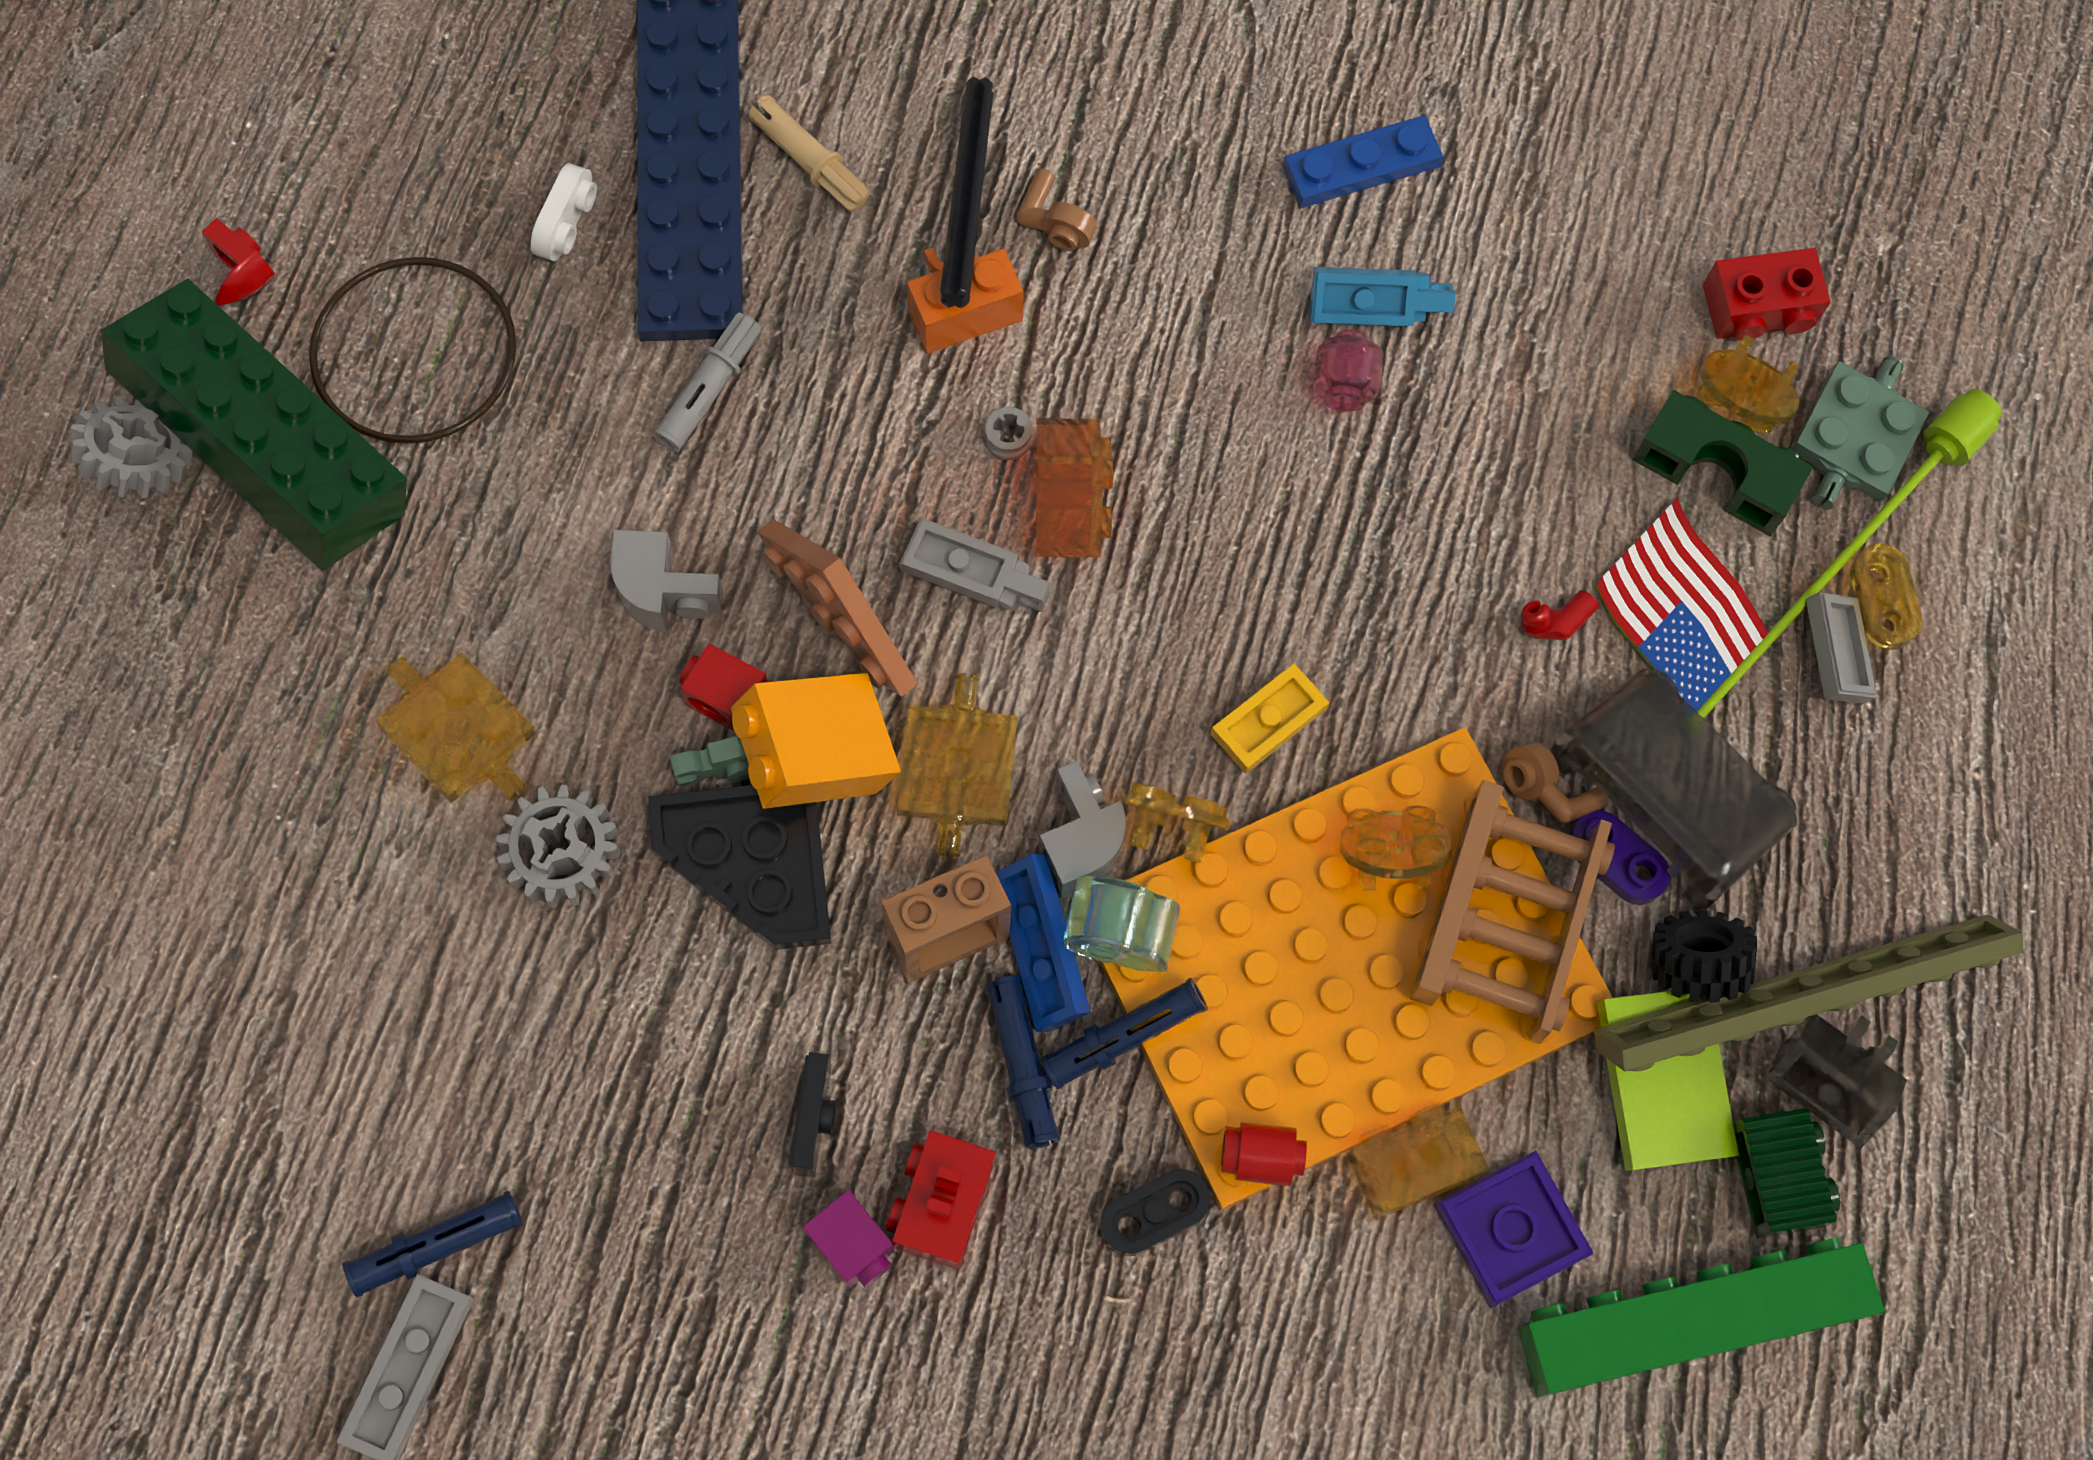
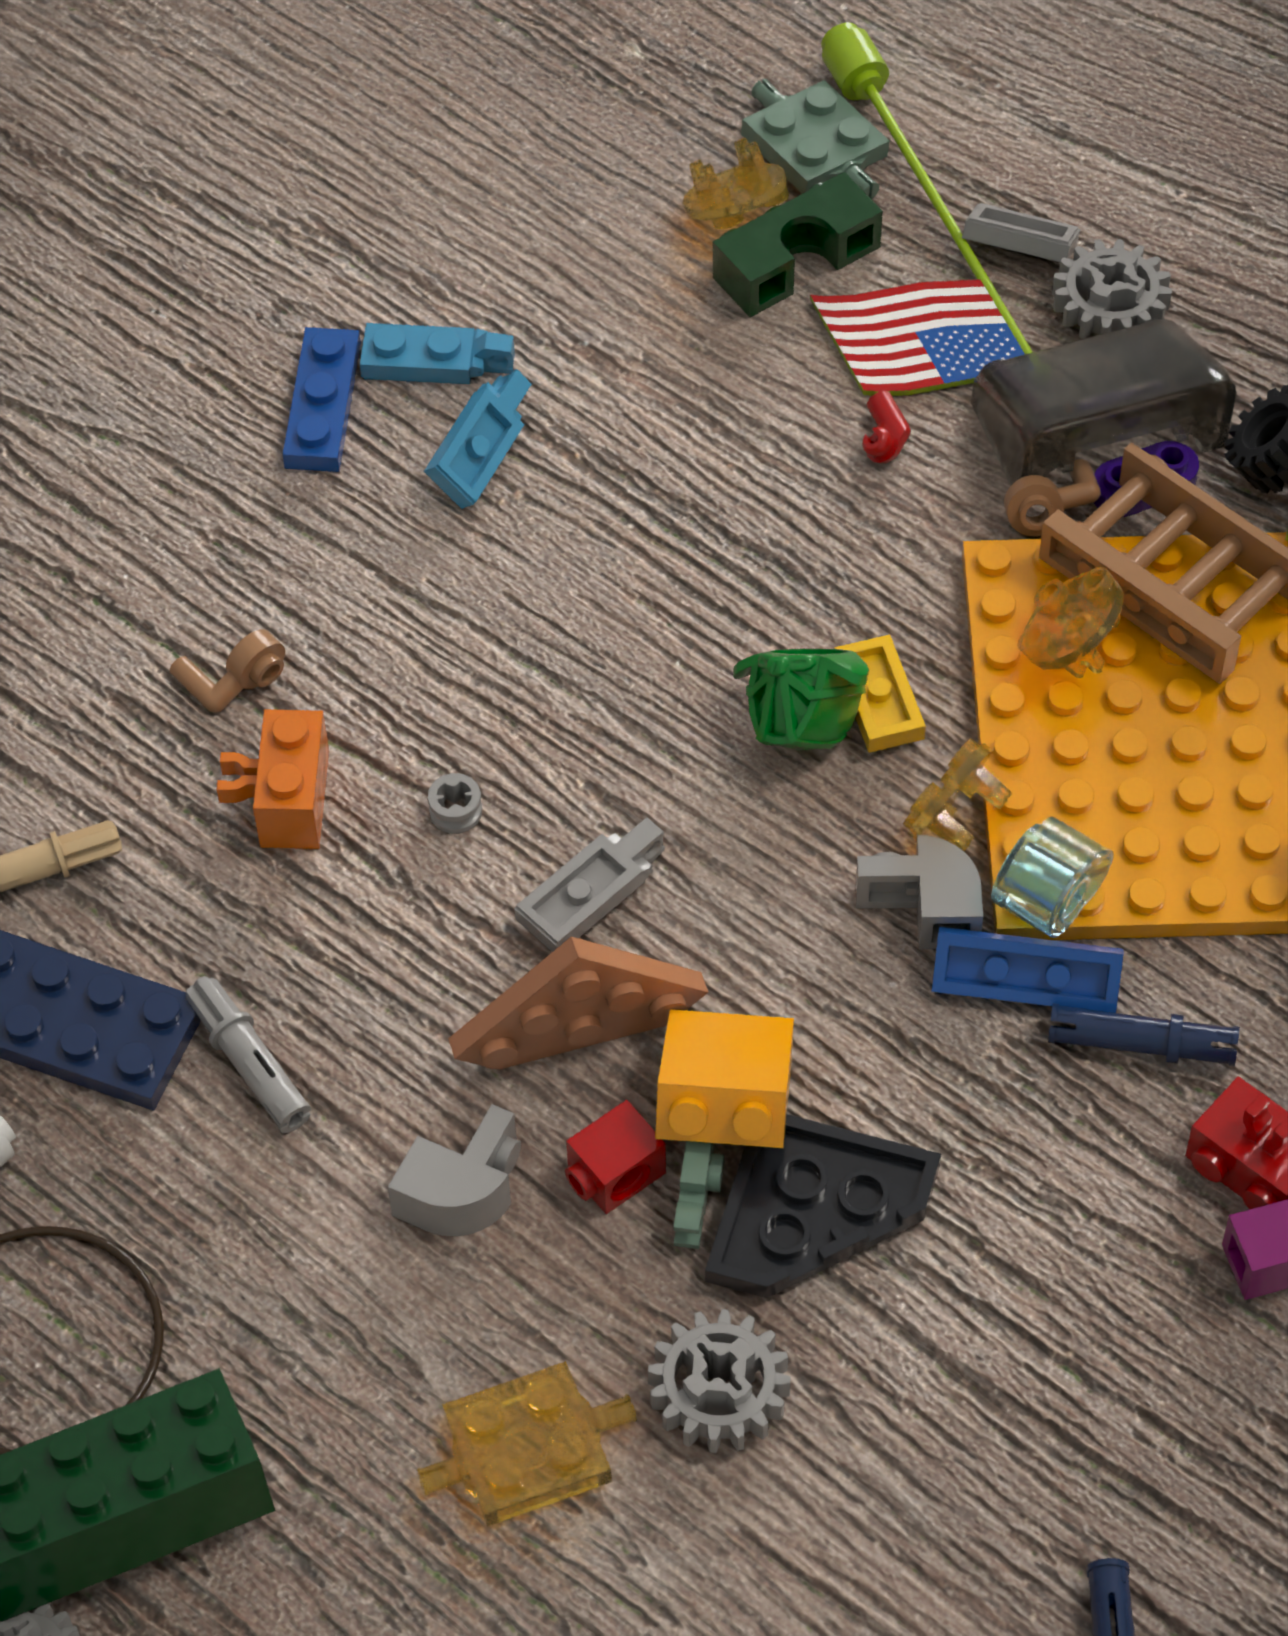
camera: 60 degrees left, 15 degrees down
(814, 1114) = (1124, 1241): black plate -> none
(939, 931) = (980, 1025): medium nougat window -> none
(957, 765) = (804, 973): clear yellow plate -> none
(967, 193) = (179, 720): black axle -> none
(1065, 1063) = (1157, 926): dark blue pin -> none
(1071, 473) = (555, 749): clear orange brick -> none
(1211, 652) = (803, 695): none -> green piece
(1348, 371) = (547, 489): clear pink head -> none
(1453, 223) = (433, 353): none -> dark azure hinge
(1766, 294) = (646, 145): red brick -> none
(1829, 737) = (1110, 289): none -> light grey gear
(1890, 599) = (982, 178): clear yellow plate -> none

